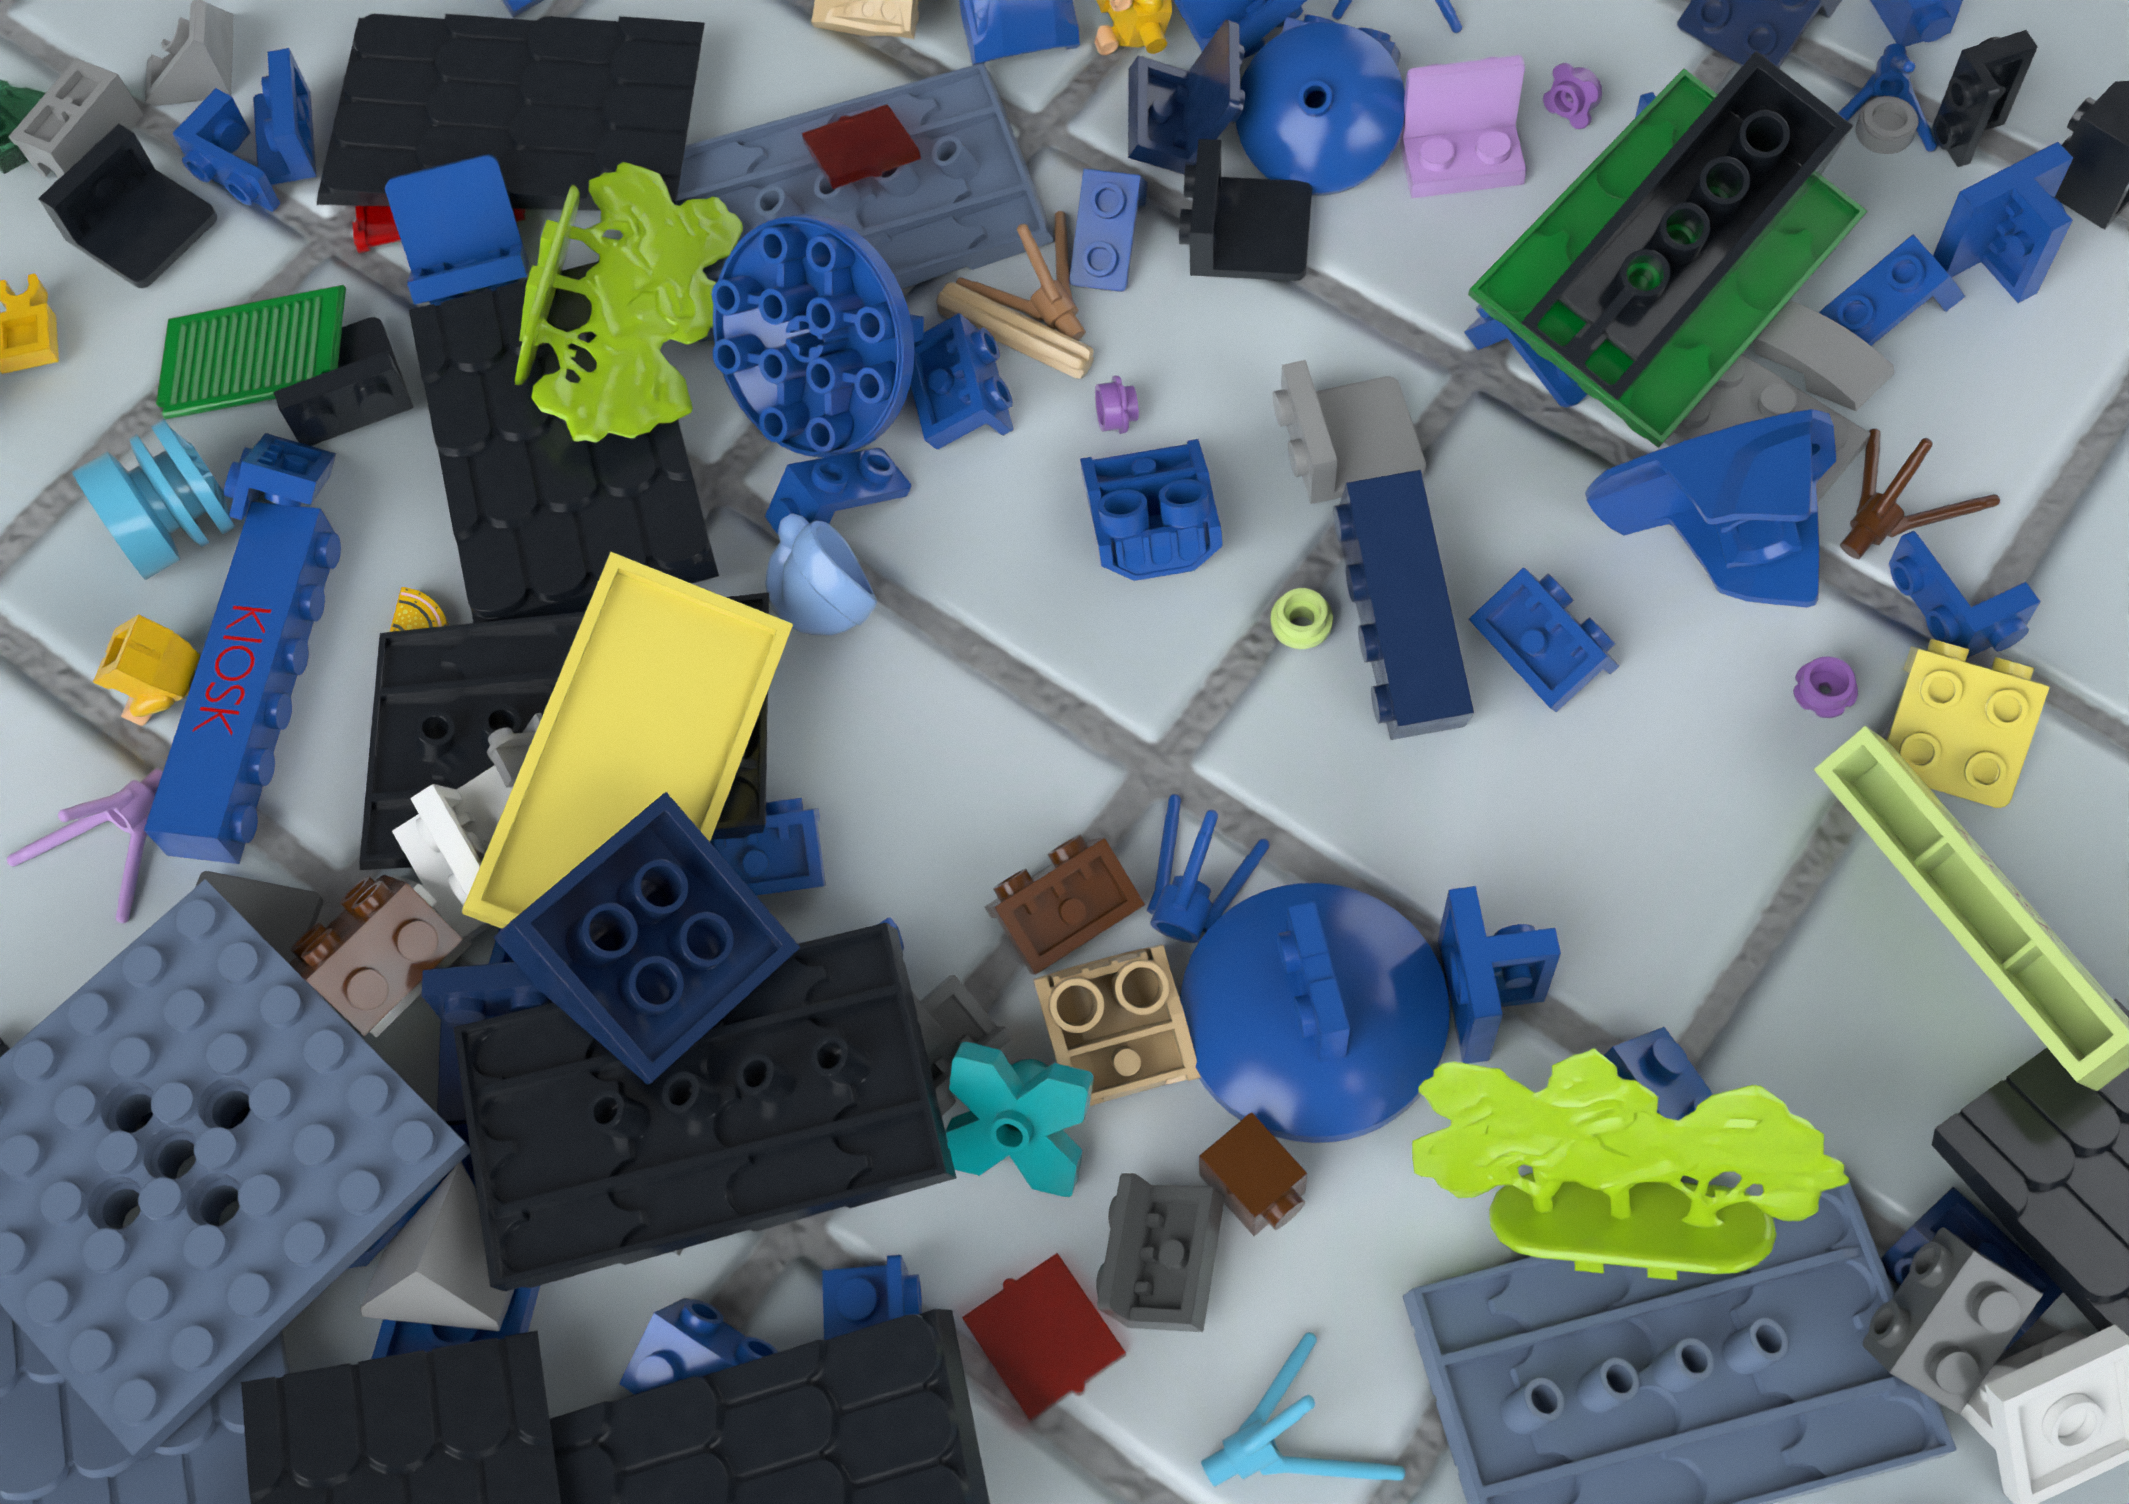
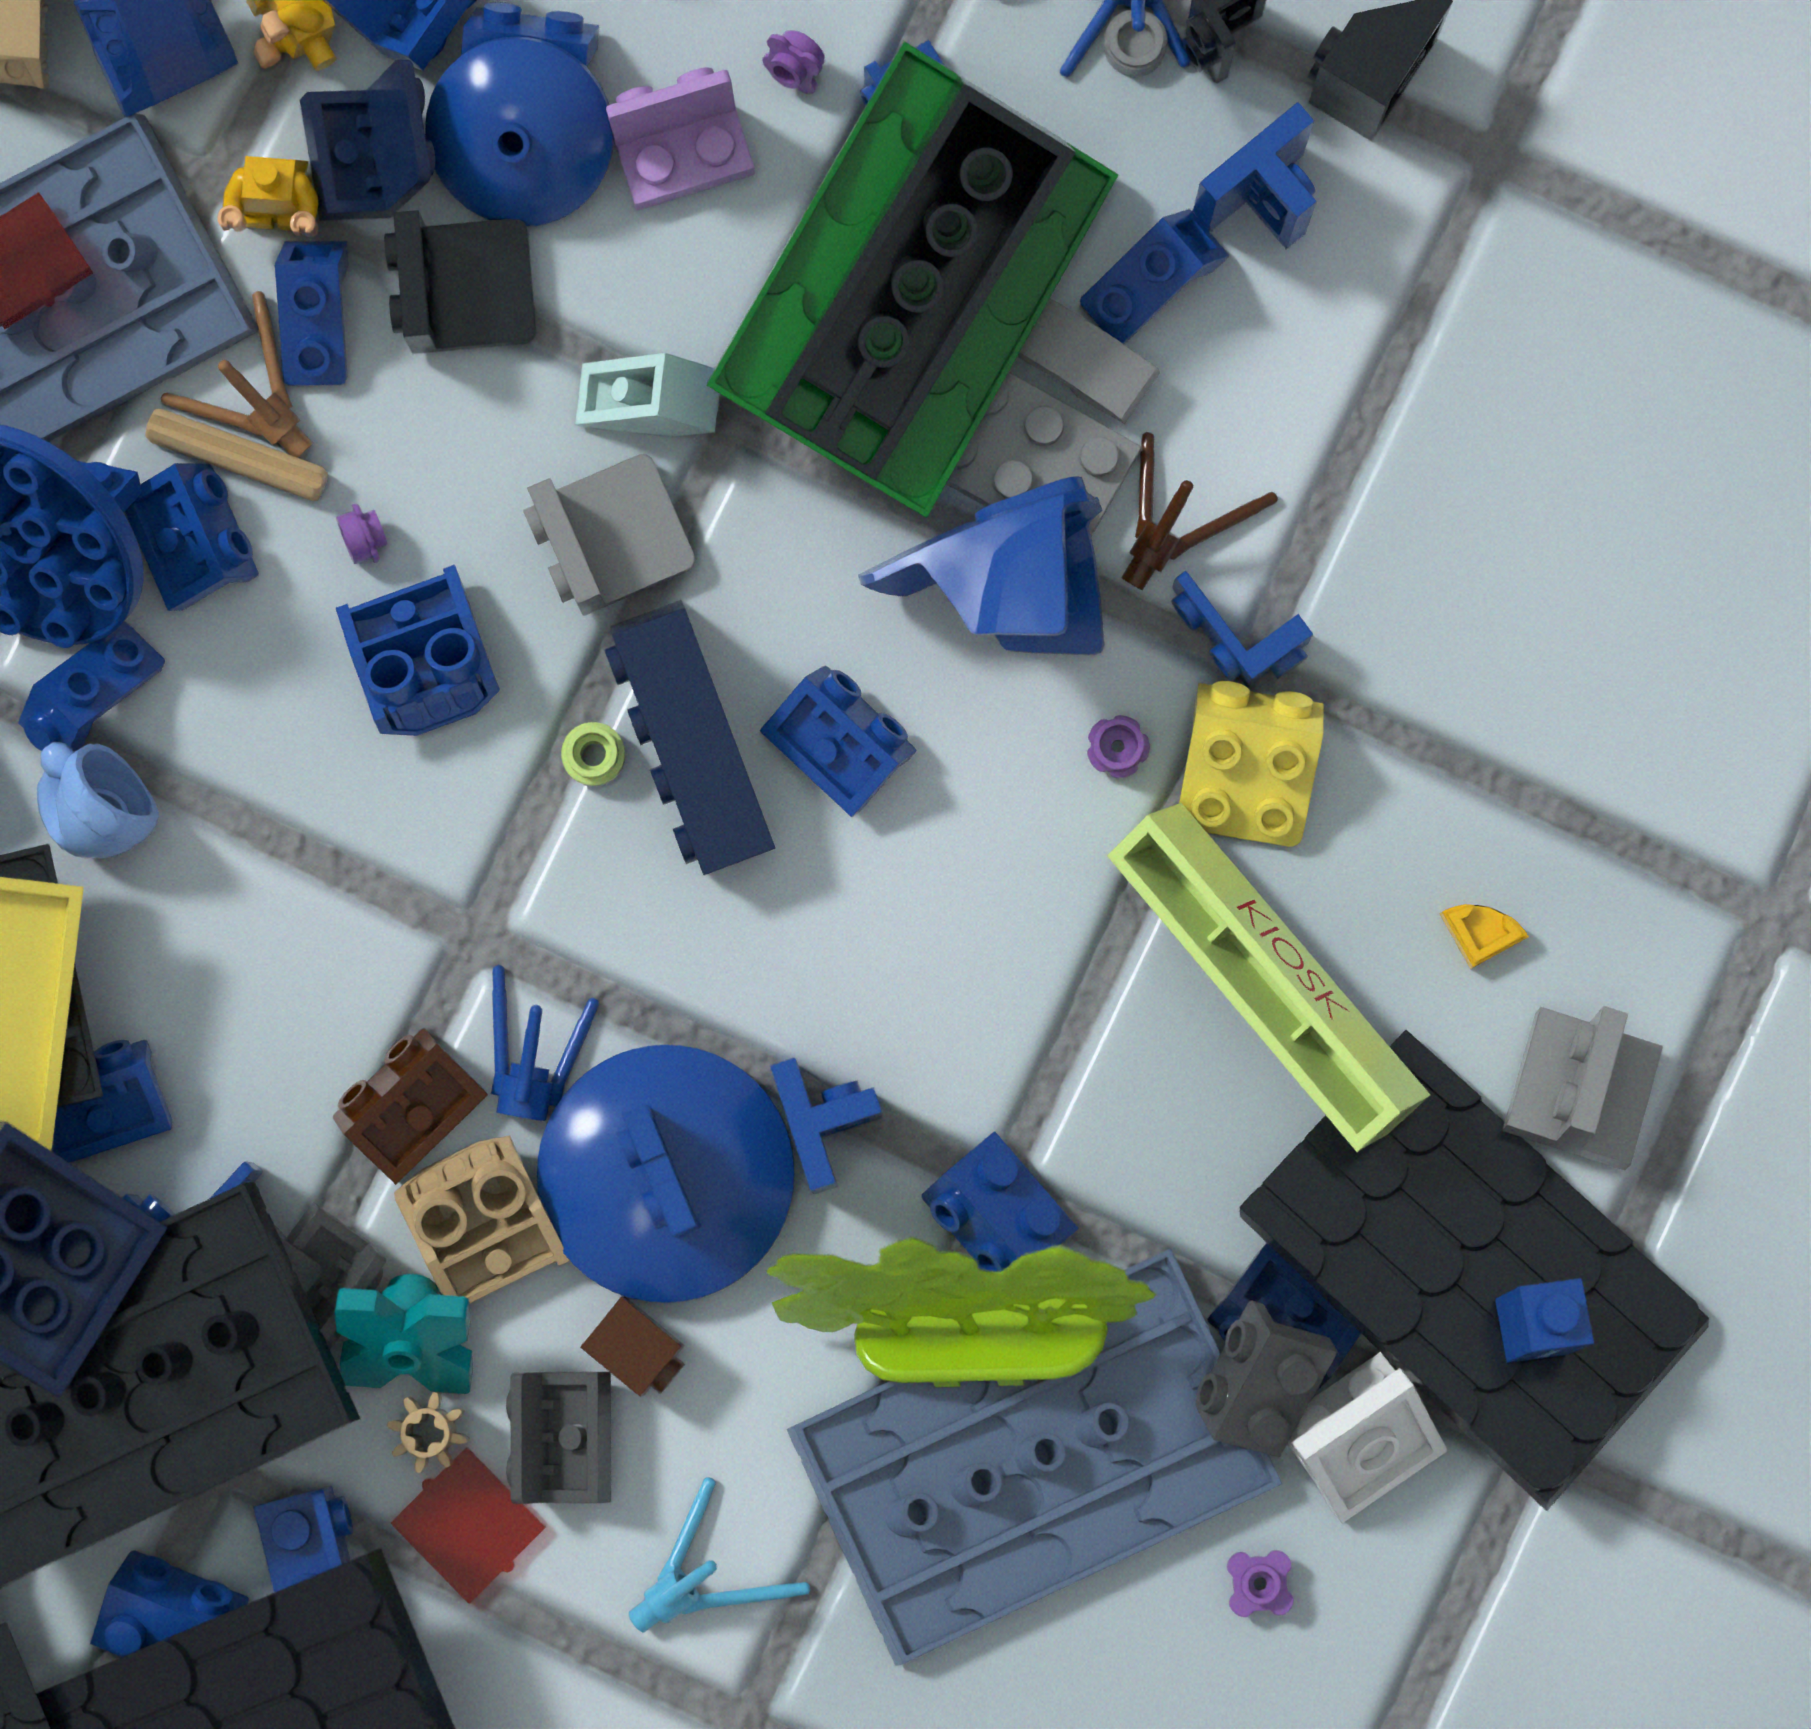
camera: 15 degrees left, 20 degrees up
(1013, 1207) = (413, 1443): none -> tan gear
(1088, 130) = (268, 194): none -> yellow piece
(1405, 327) = (648, 396): none -> light aqua slope

